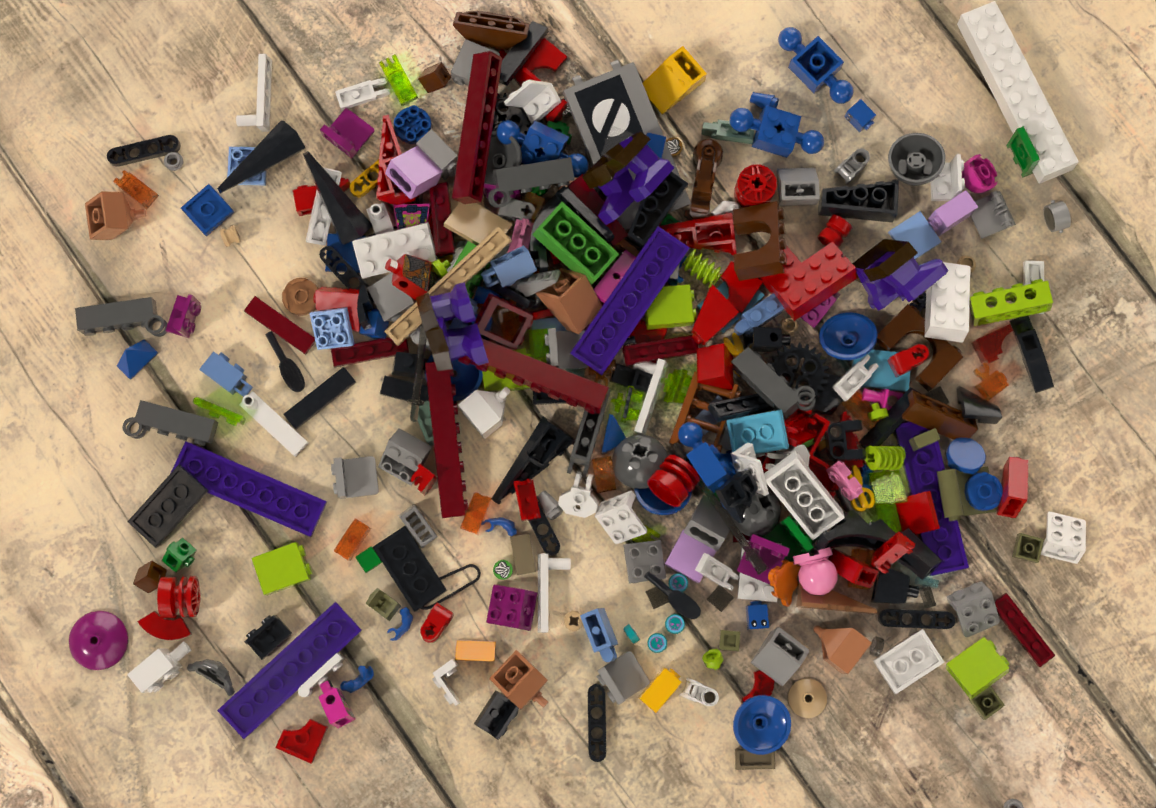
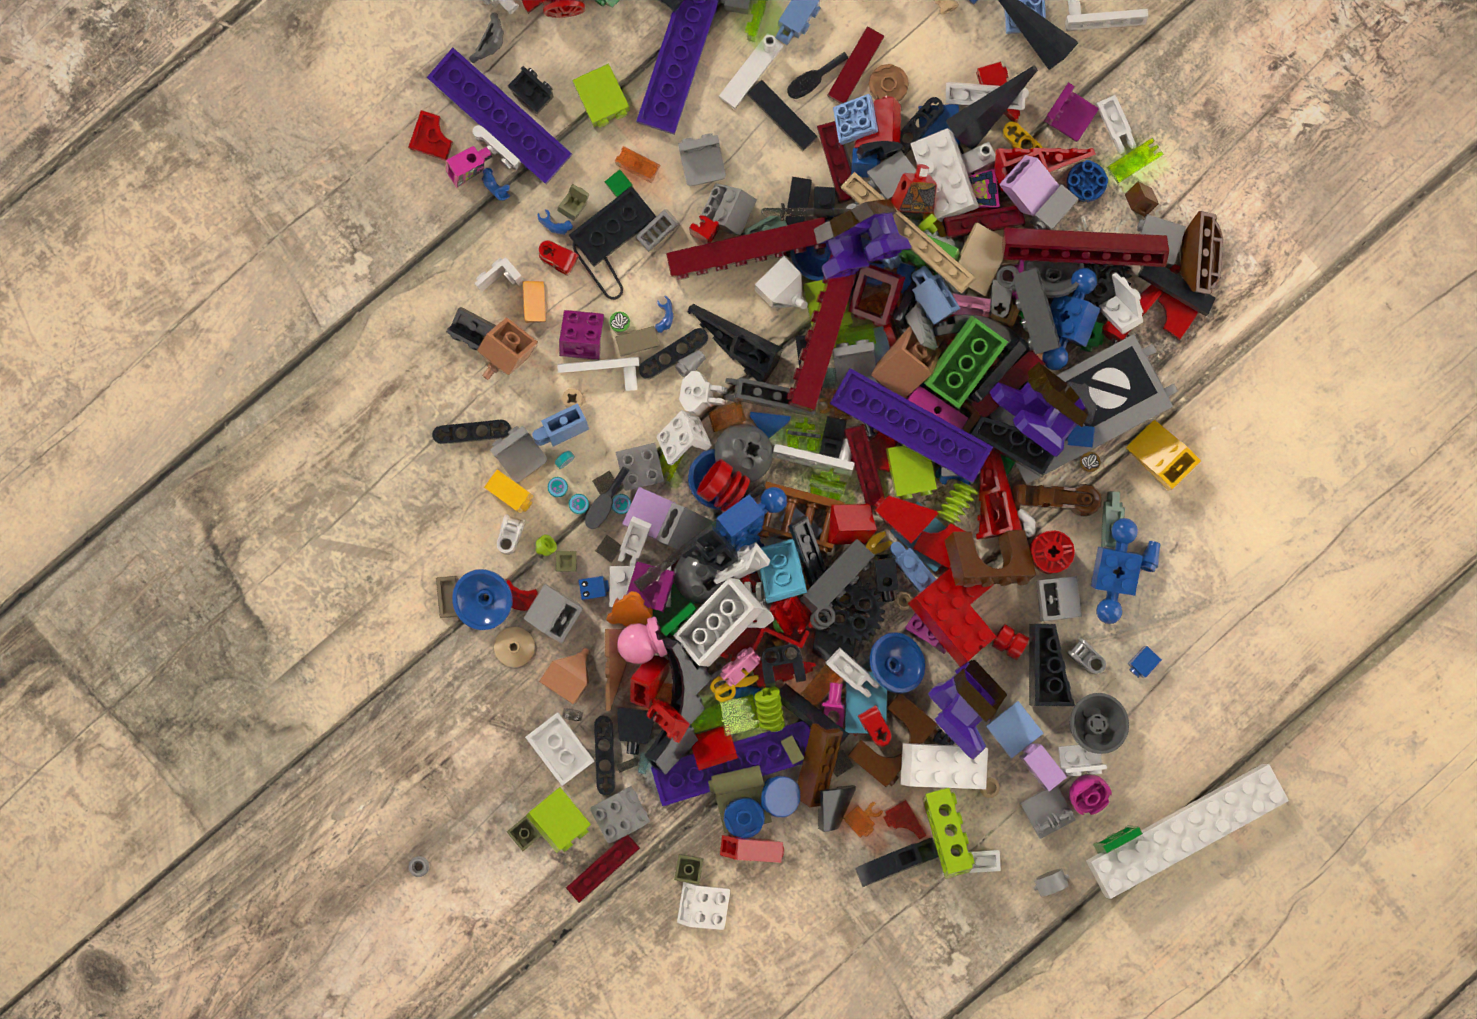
camera: 90 degrees right, 5 degrees up
(477, 512) = (675, 289): clear orange hinge -> none
(527, 500) = (692, 338): red hinge -> none
(807, 57) = (1211, 608): blue brick -> none
(877, 413) = (816, 699): lime tile -> none

